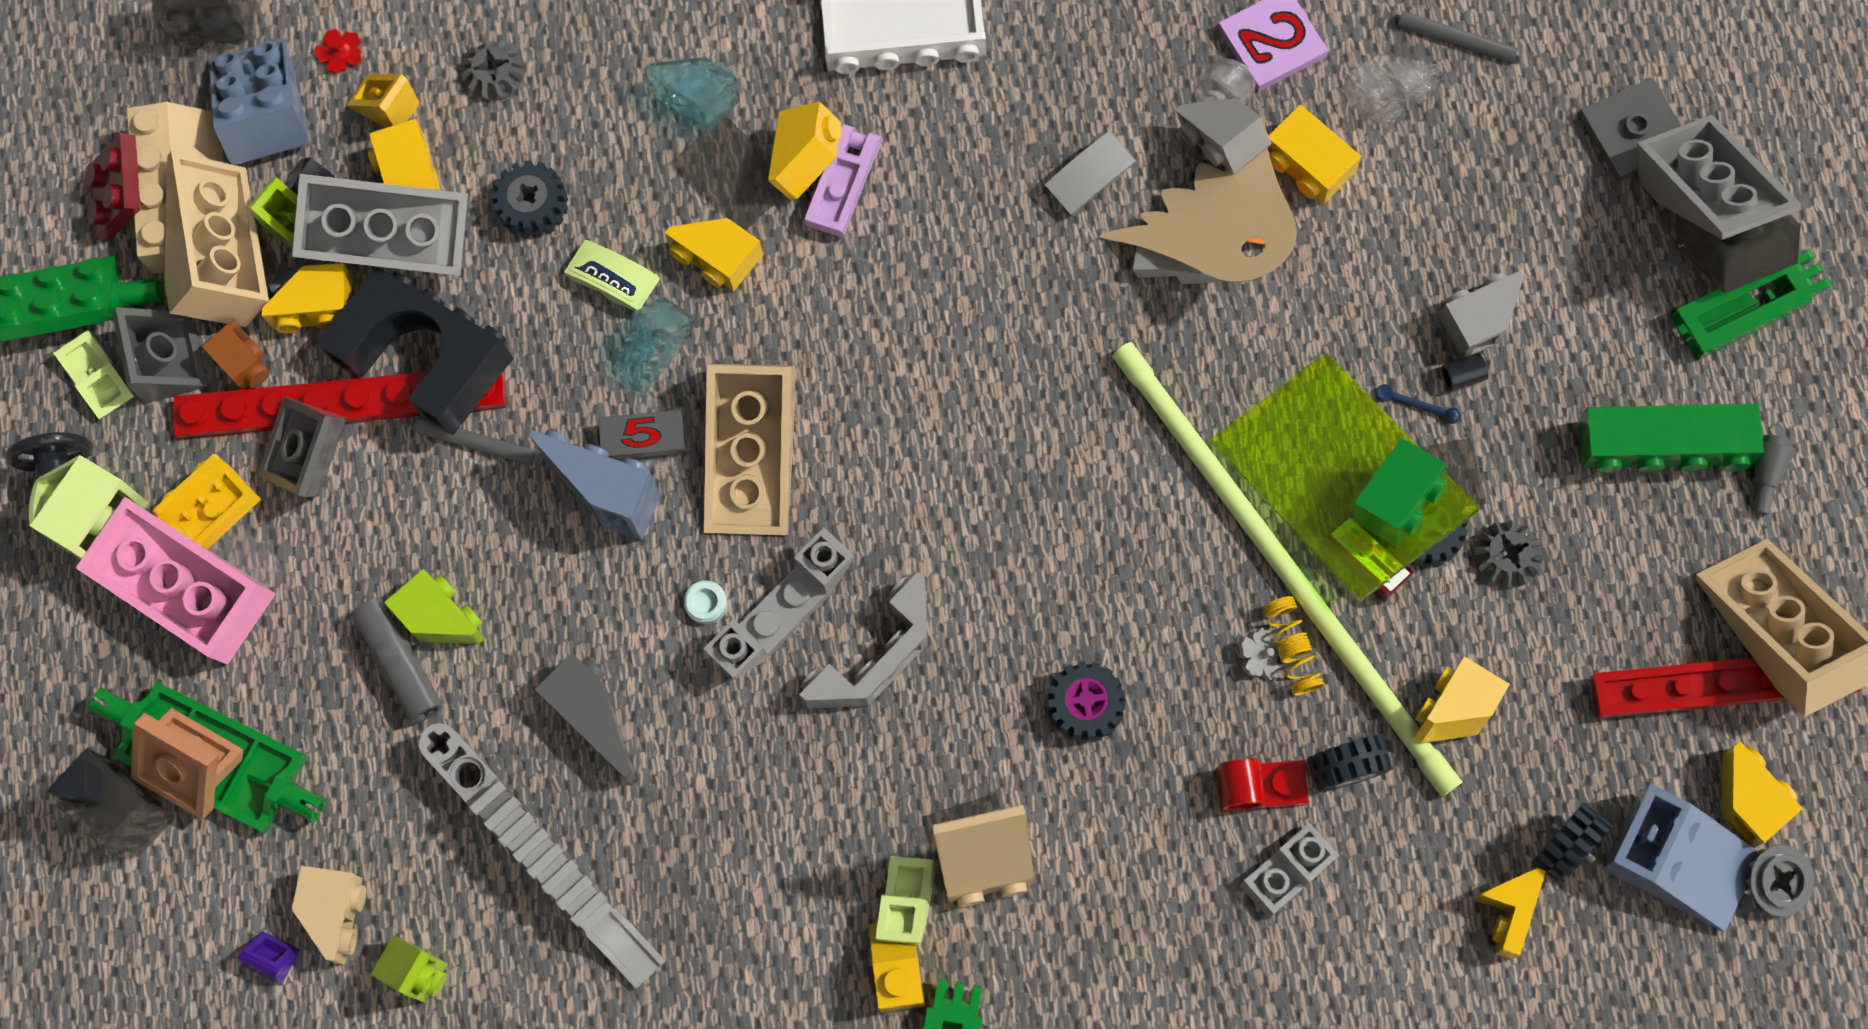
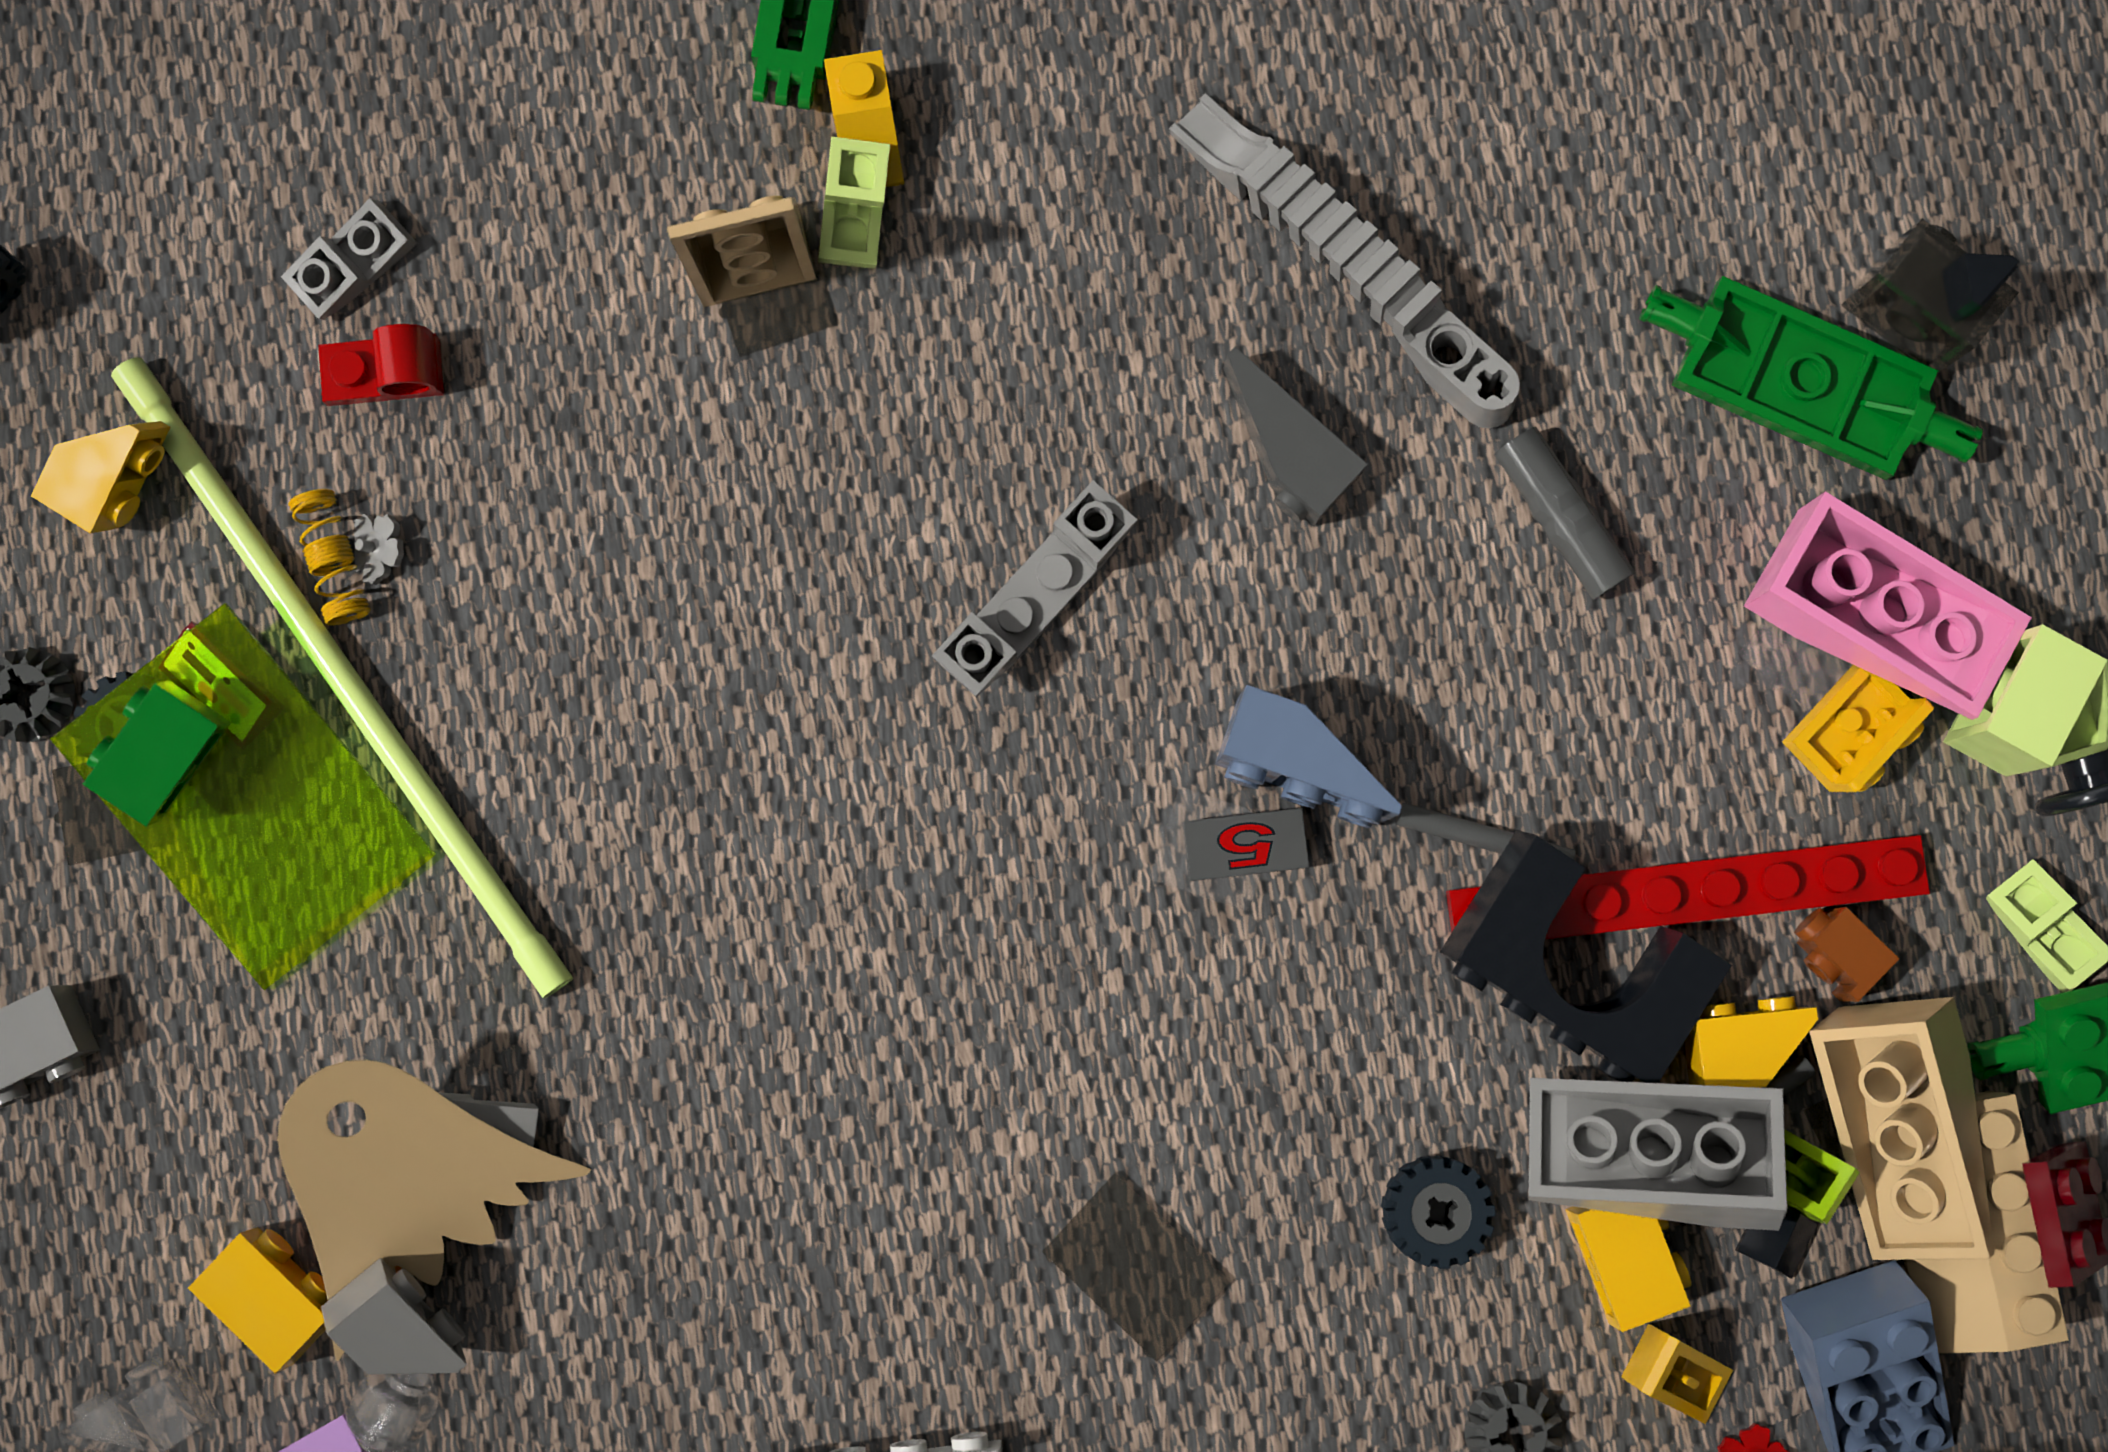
camera: 170 degrees right, 10 degrees up
(158, 353) = (1963, 951): dark grey slope -> none
(181, 760) = (1838, 356): nougat bracket -> none
(269, 957) = (1691, 121): dark purple slope -> none
(301, 447) = (1734, 810): dark grey slope -> none
(327, 908) = (1622, 177): tan slope -> none
(410, 970) = (1502, 95): lime slope -> none
(430, 613) = (1520, 577): lime slope -> none
(612, 275) = (1307, 1091): yellowish green slope -> none
(651, 345) = (1239, 981): clear light blue slope -> none
(695, 88) = (1198, 1396): clear light blue slope -> none
(705, 602) = (1142, 607): light aqua tile -> none
(717, 248) = (1151, 1134): yellow slope -> none
(748, 448) = (1091, 831): tan slope -> none
(803, 147) = (1029, 1295): yellow slope -> none
(832, 690) = (960, 481): light grey slope -> none
(842, 182) = (970, 1249): lavender plate -> none
(1084, 686) = (608, 453): black wheel -> none
(1090, 172) = (598, 1265): light grey slope -> none
(1350, 763) = (254, 385): black wheel -> none
(1385, 393) = (182, 931): dark blue hinge -> none
(1464, 371) = (66, 960): black hinge -> none
(1519, 900) = (45, 218): yellow slope -> none

